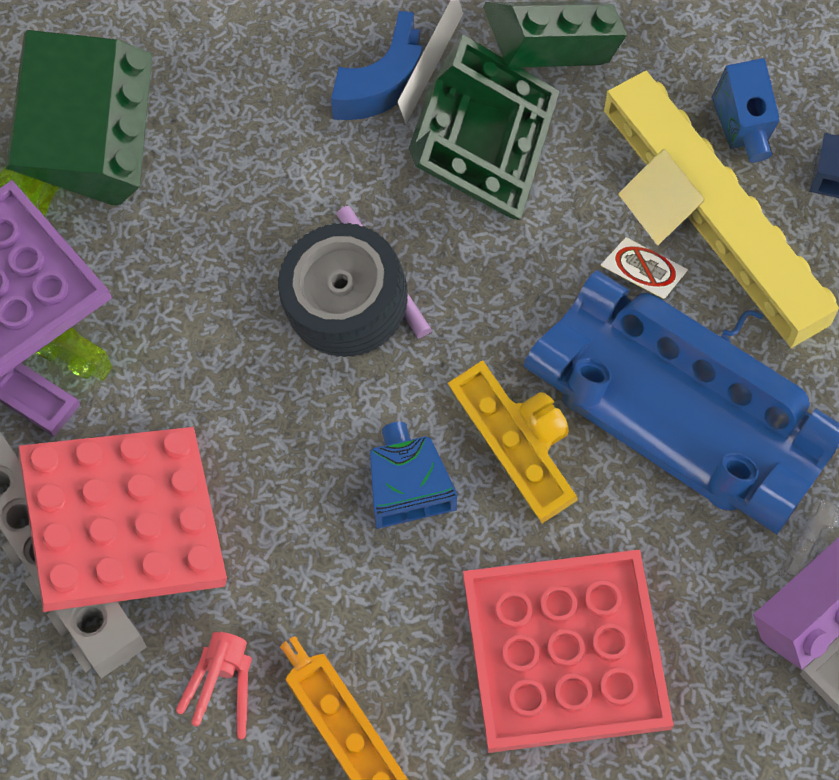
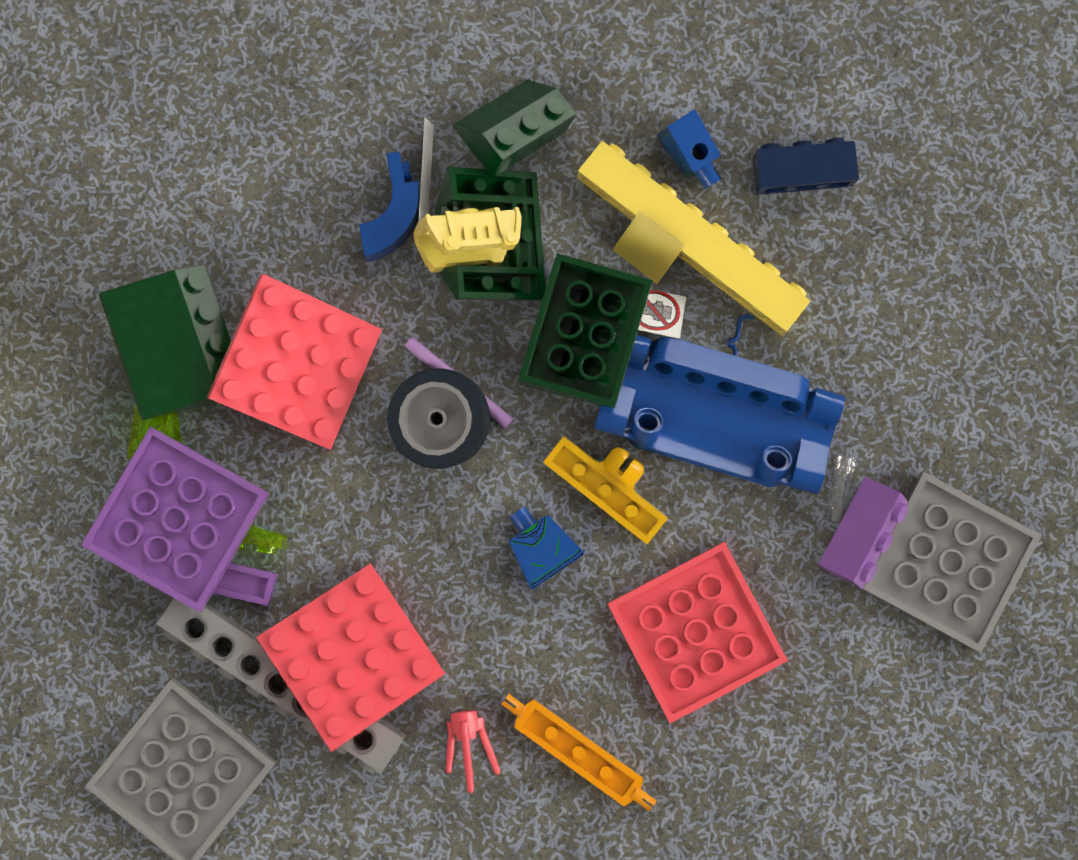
camera: 25 degrees left, 20 degrees up
(204, 178) = (294, 362): none -> coral plate
(453, 107) = (467, 237): none -> light yellow piece
(549, 252) = (585, 331): none -> dark green slope

